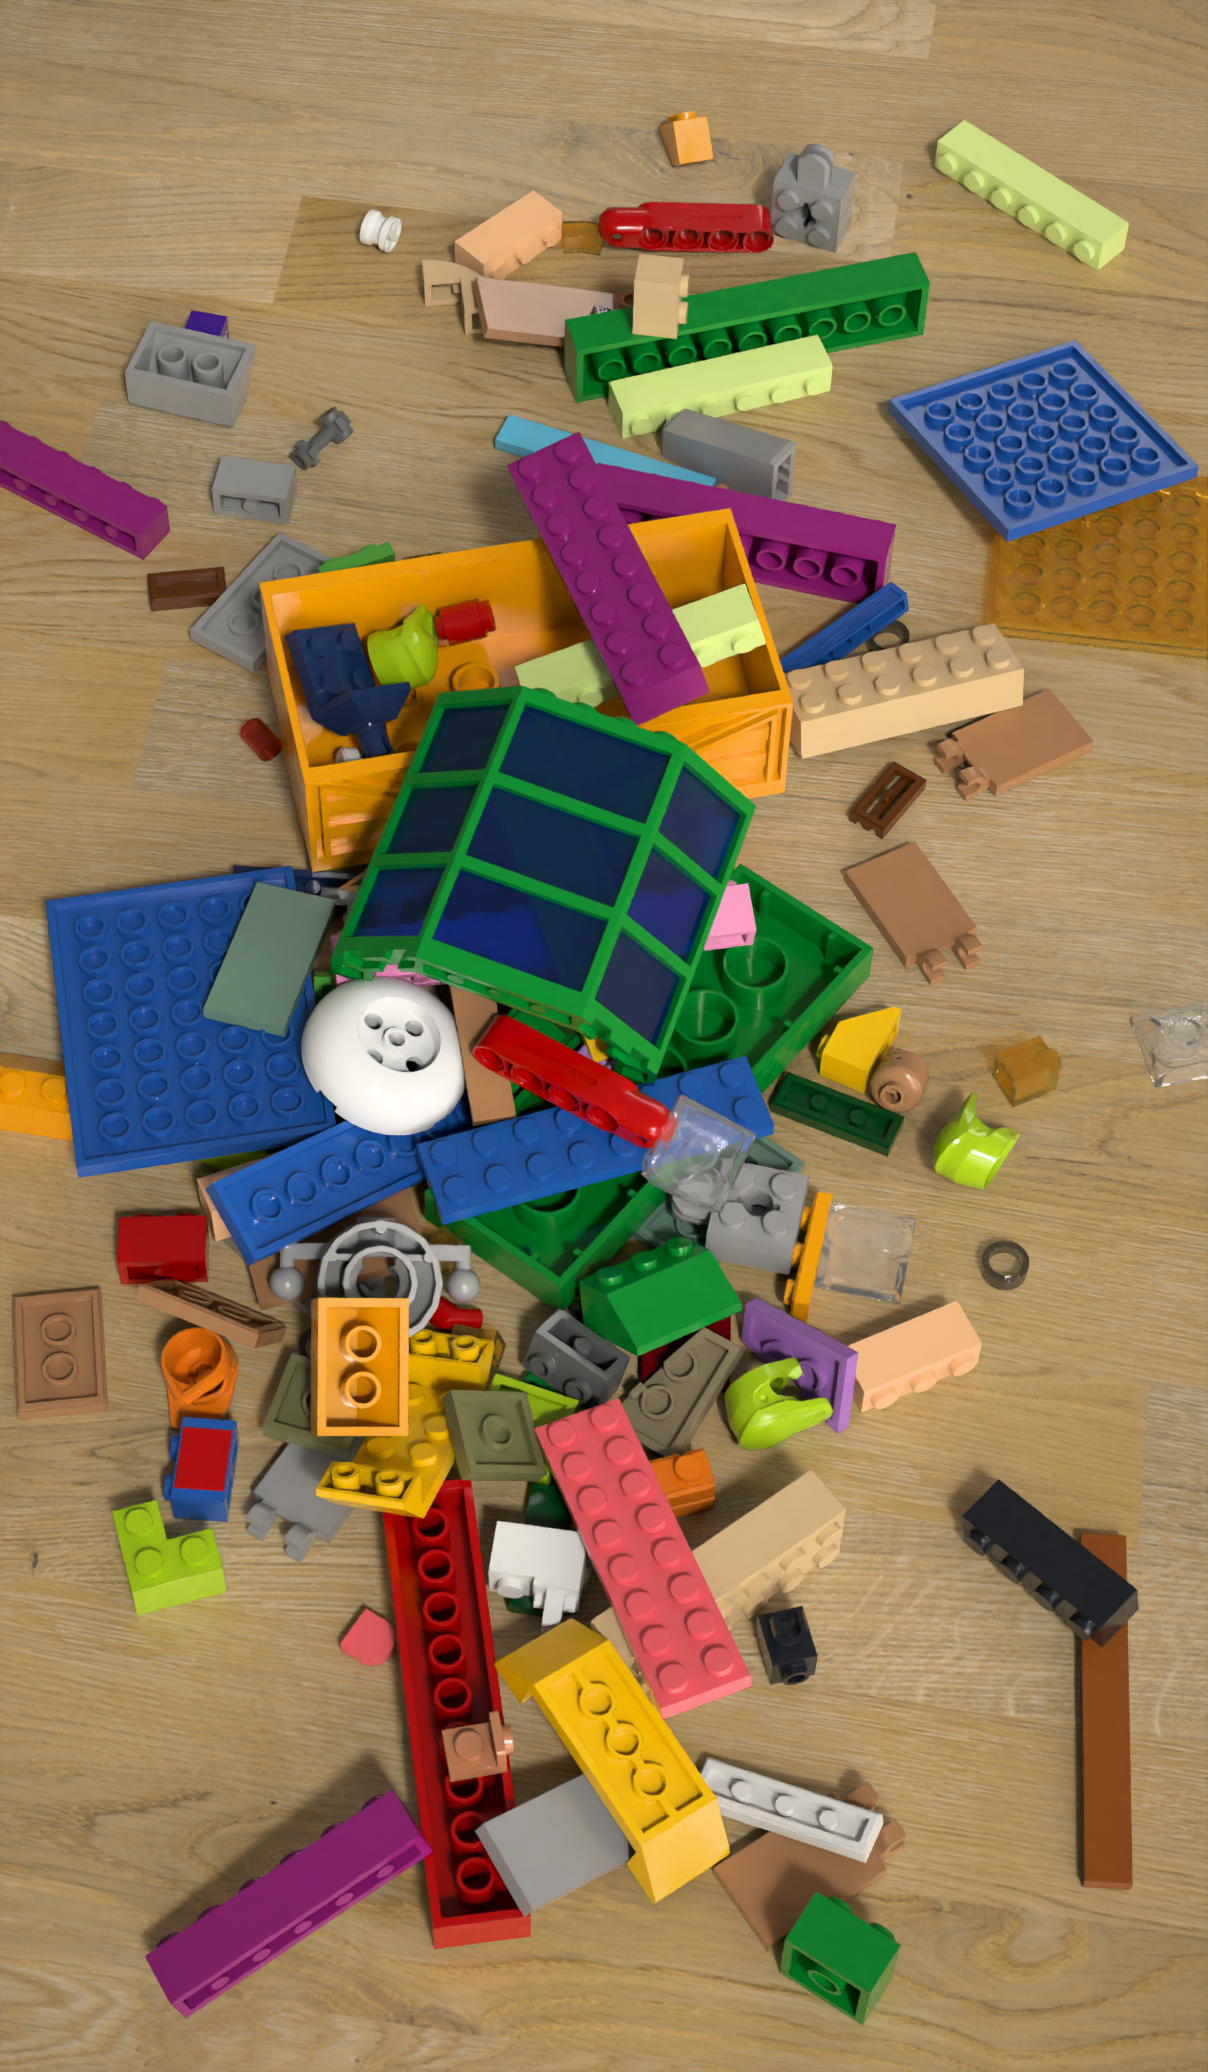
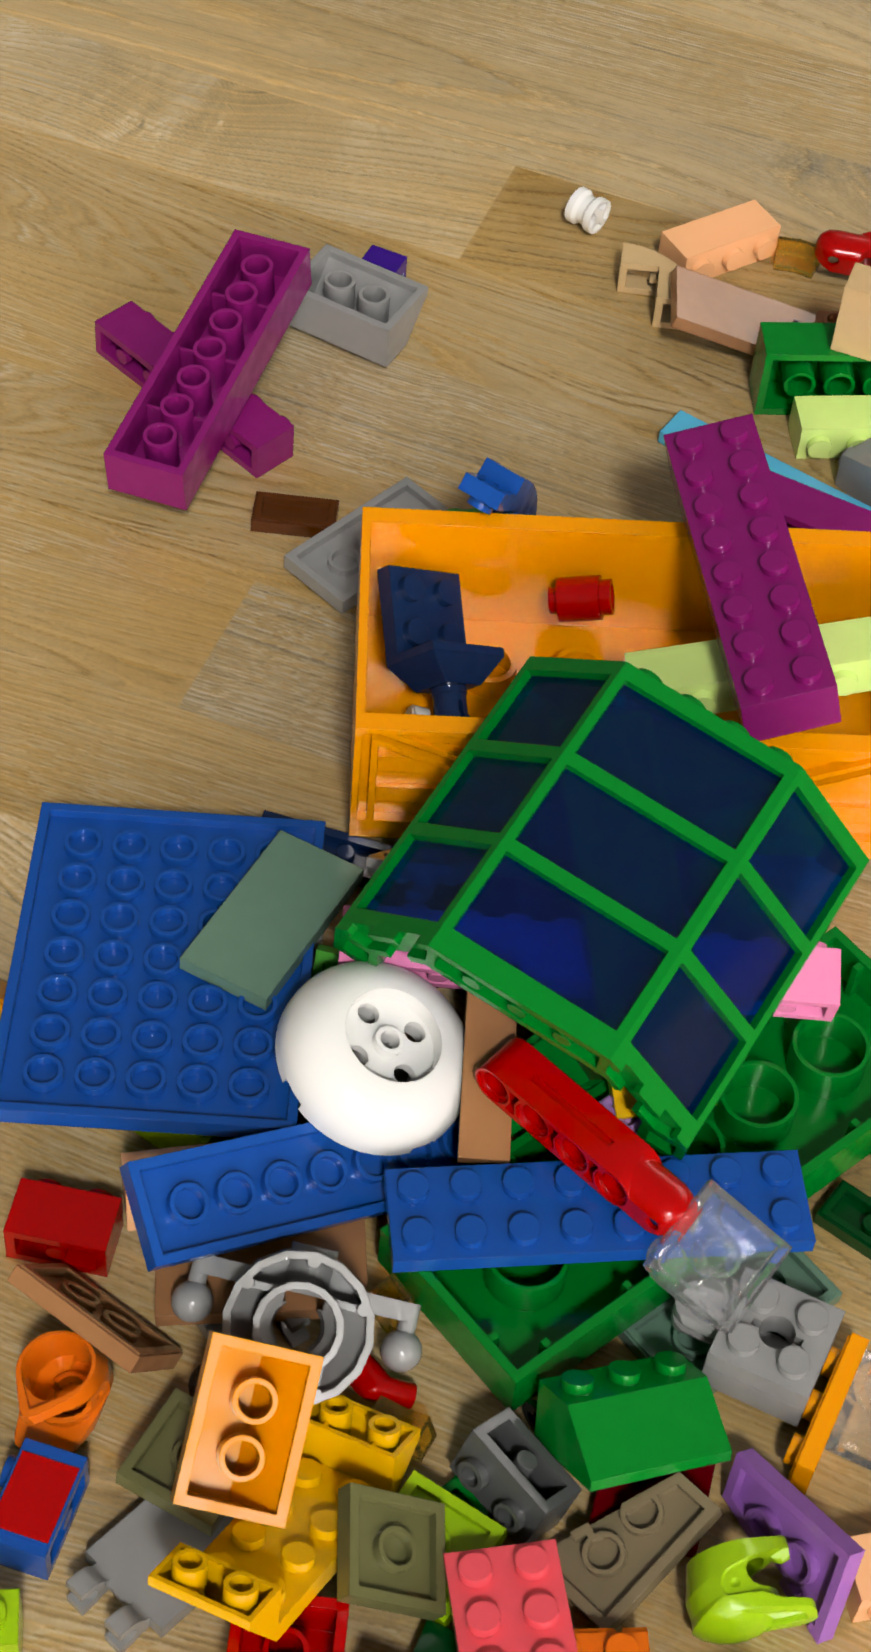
camera: 10 degrees right, 5 degrees down
(79, 469) = (208, 370): none -> magenta brick
(254, 489) = (392, 430): light grey brick -> none
(261, 739) = (331, 684): clear red hinge -> none
(335, 427) = (492, 387): dark grey bar -> none
(374, 543) = (499, 490): none -> blue slope
(407, 651) = (509, 615): lime helmet -> none

